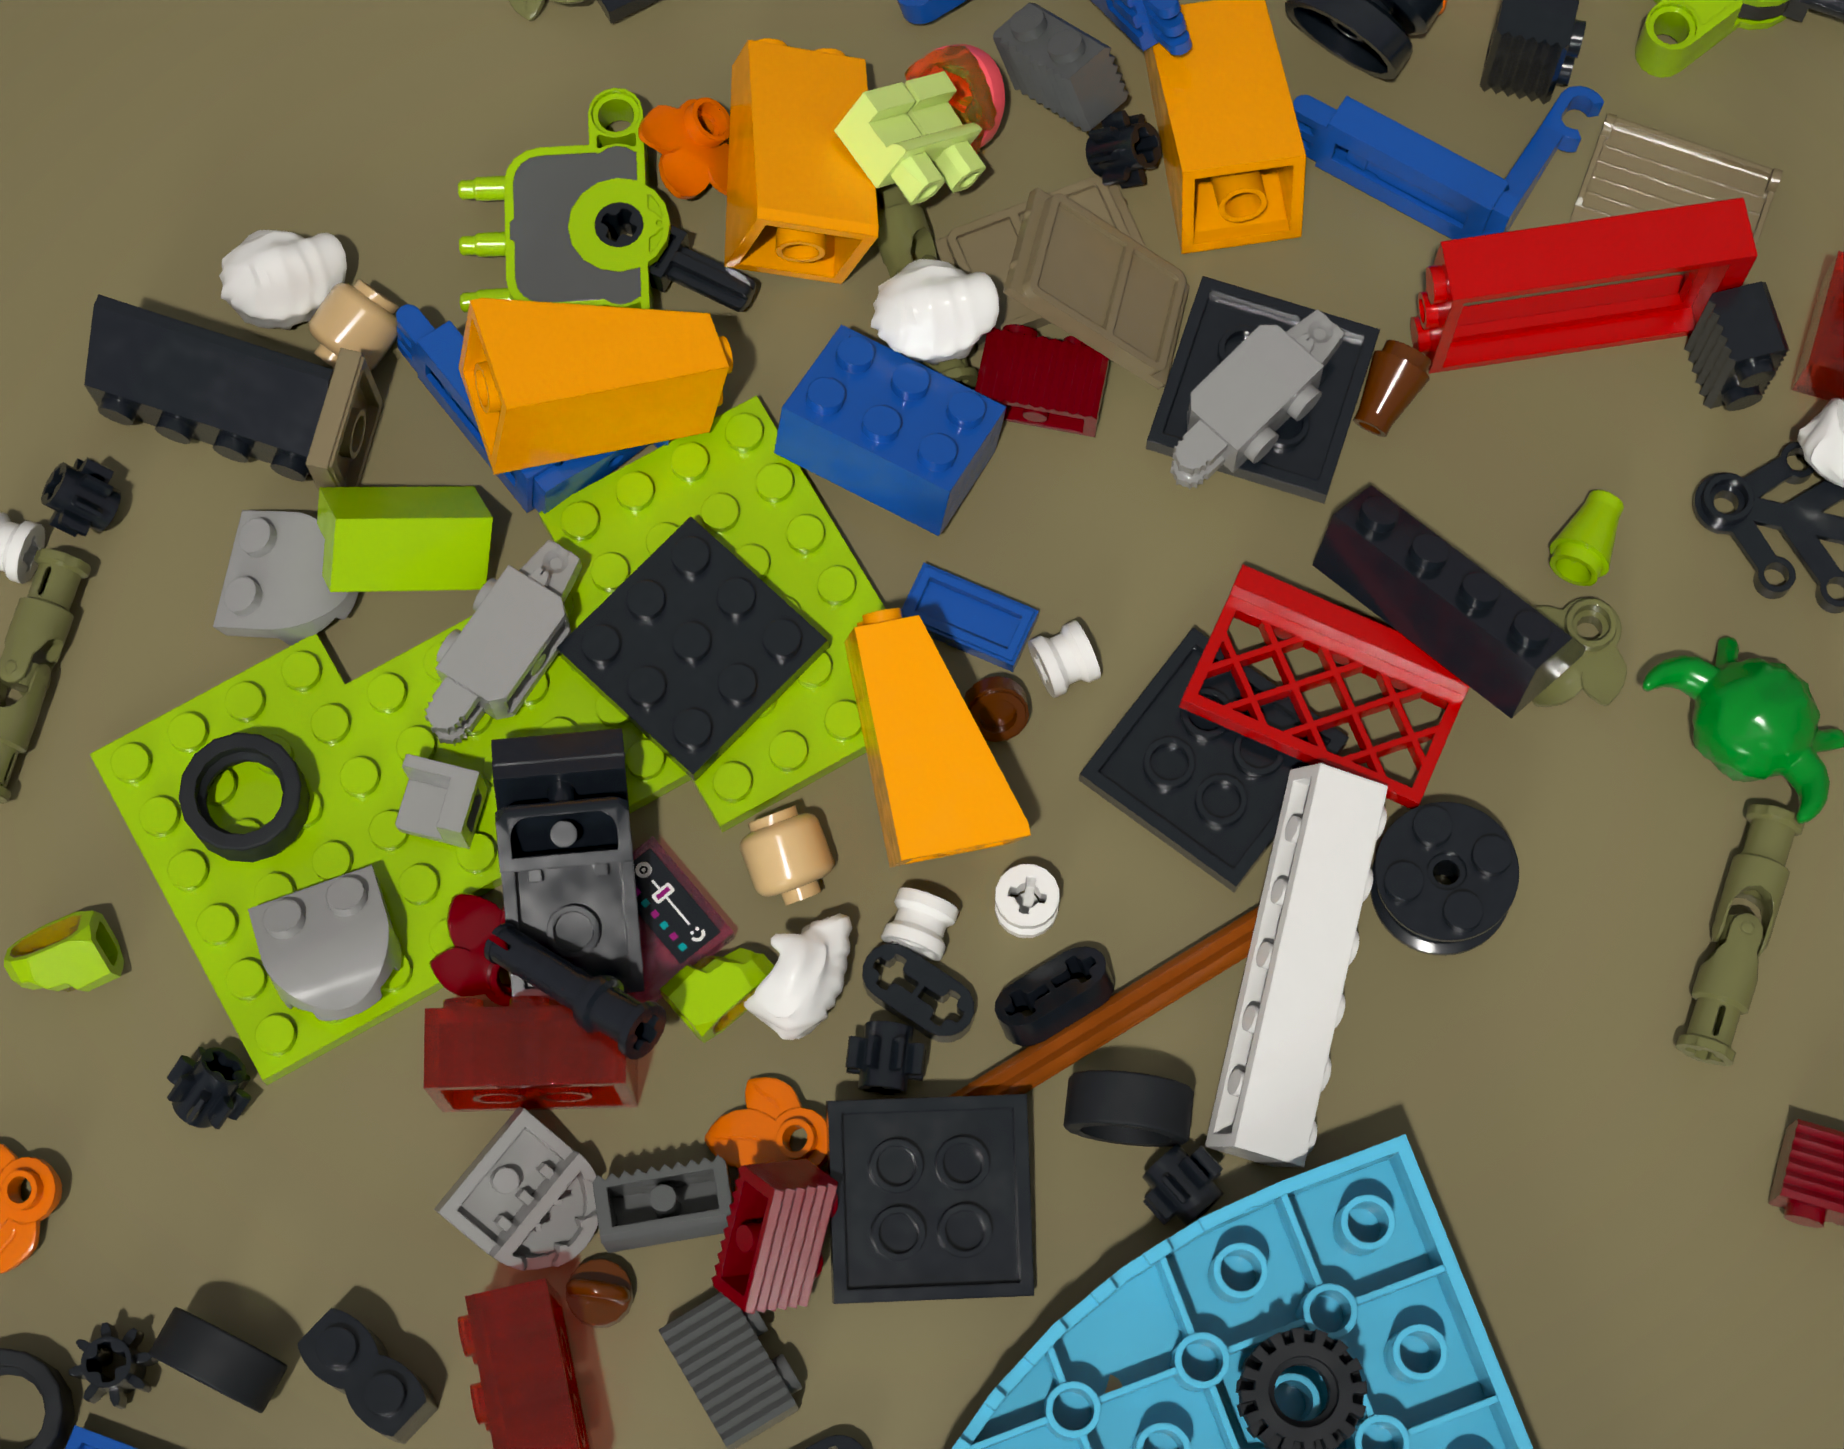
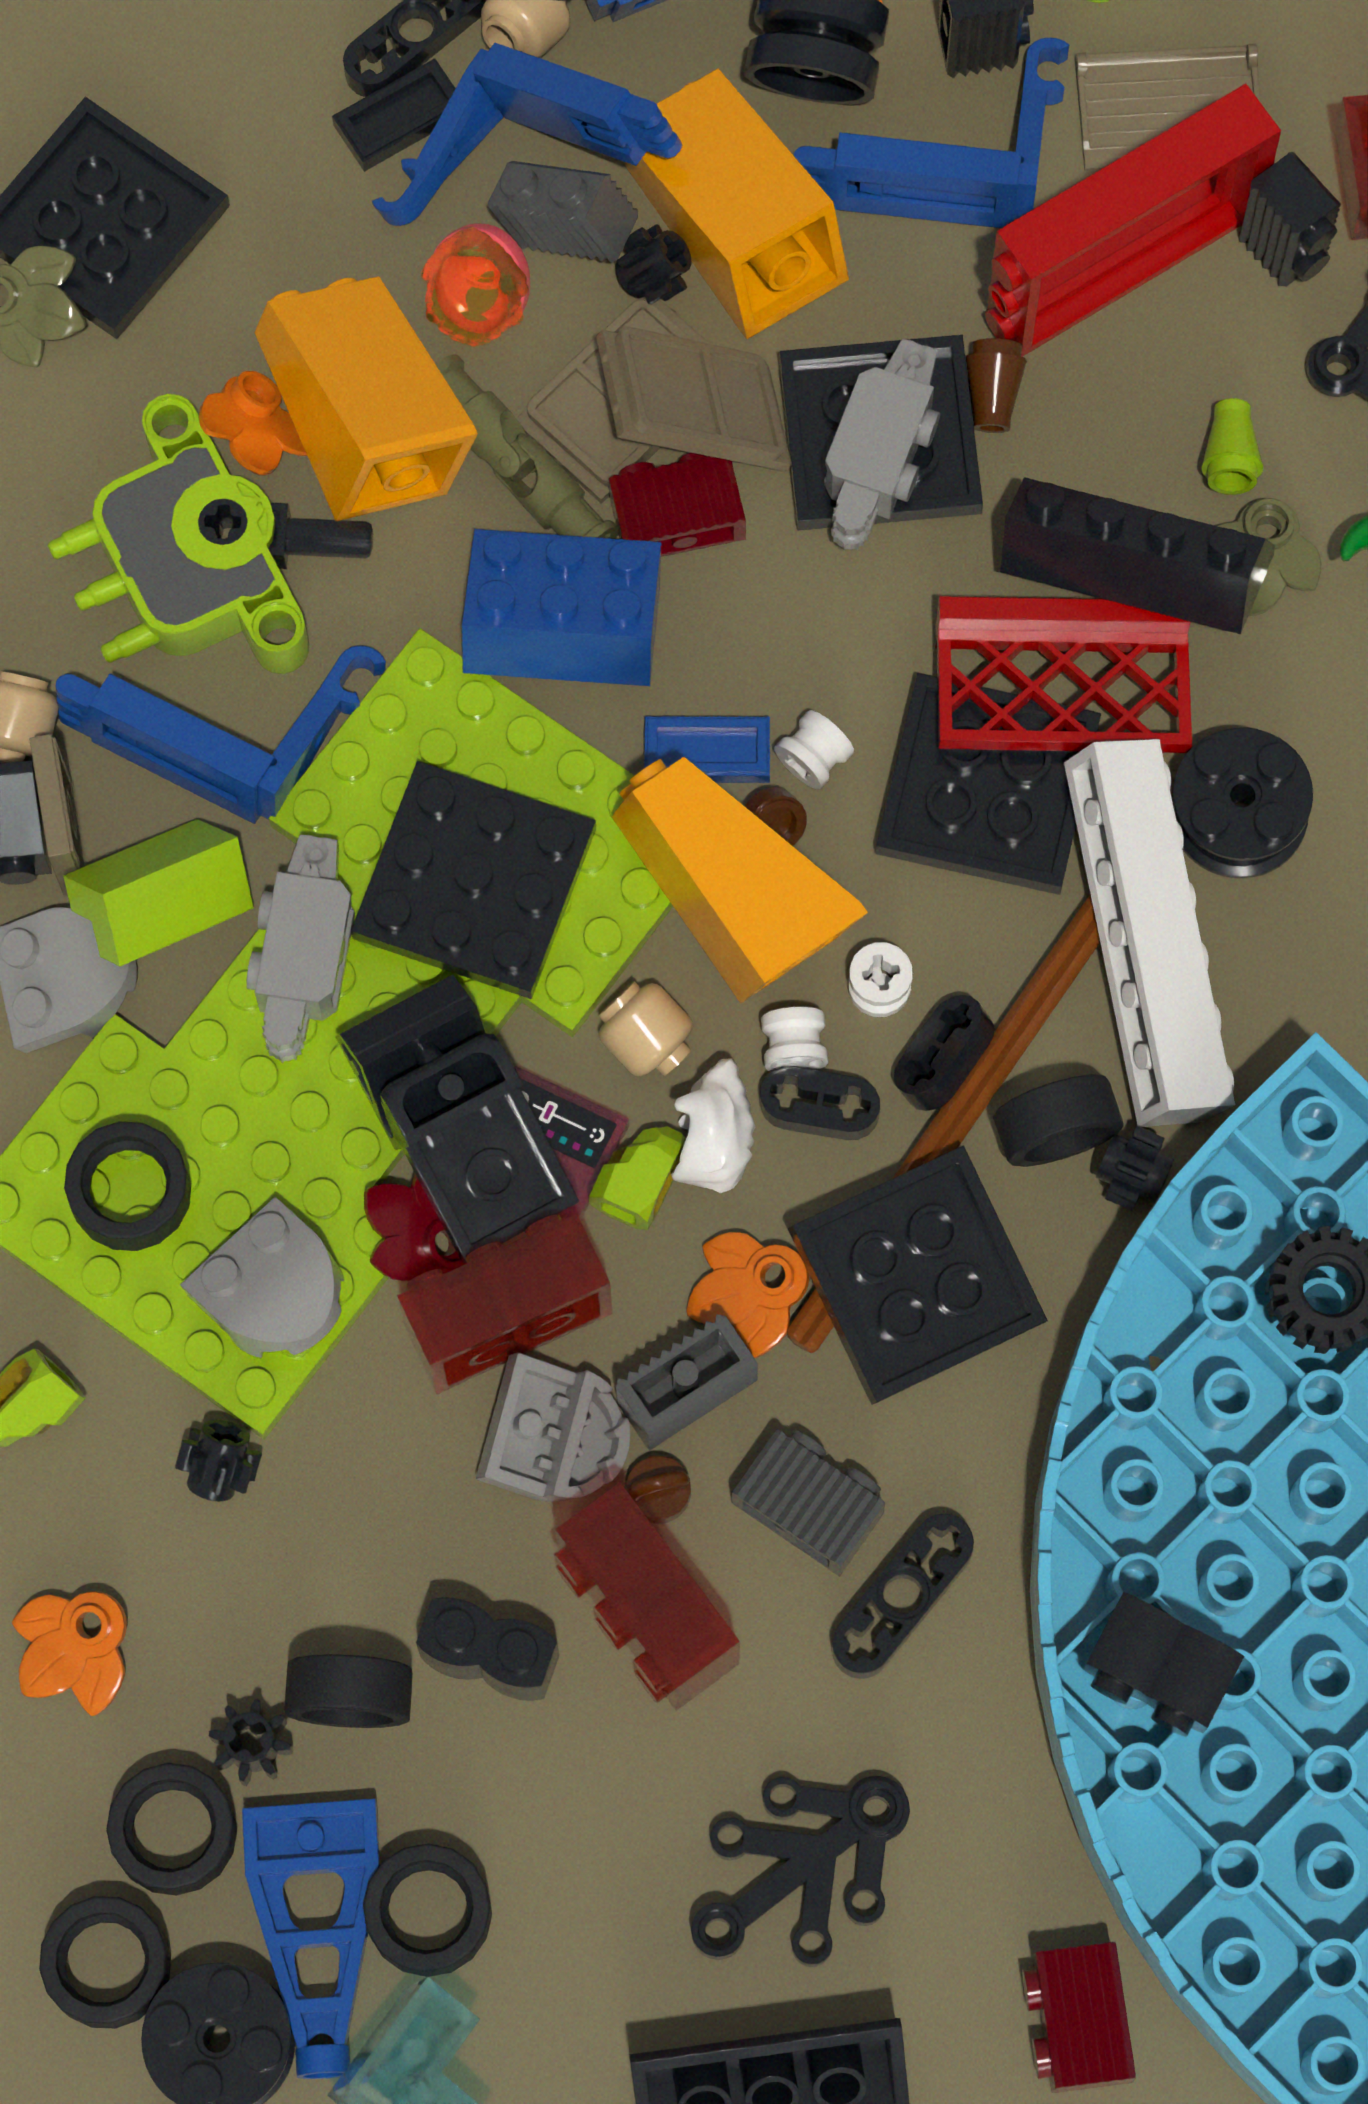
camera: 25 degrees left, 0 degrees up
(441, 801) = (309, 1113): light grey panel -> none
(587, 378) = (270, 672): light orange slope -> none
(595, 1001) = (553, 1220): black pin -> none
(775, 1235) = (800, 1362): dark red brick -> none
(885, 1058) = (820, 1171): black gear -> none
(912, 138) = (465, 331): yellowish green hips -> none
(935, 311) = (557, 480): white hair -> none

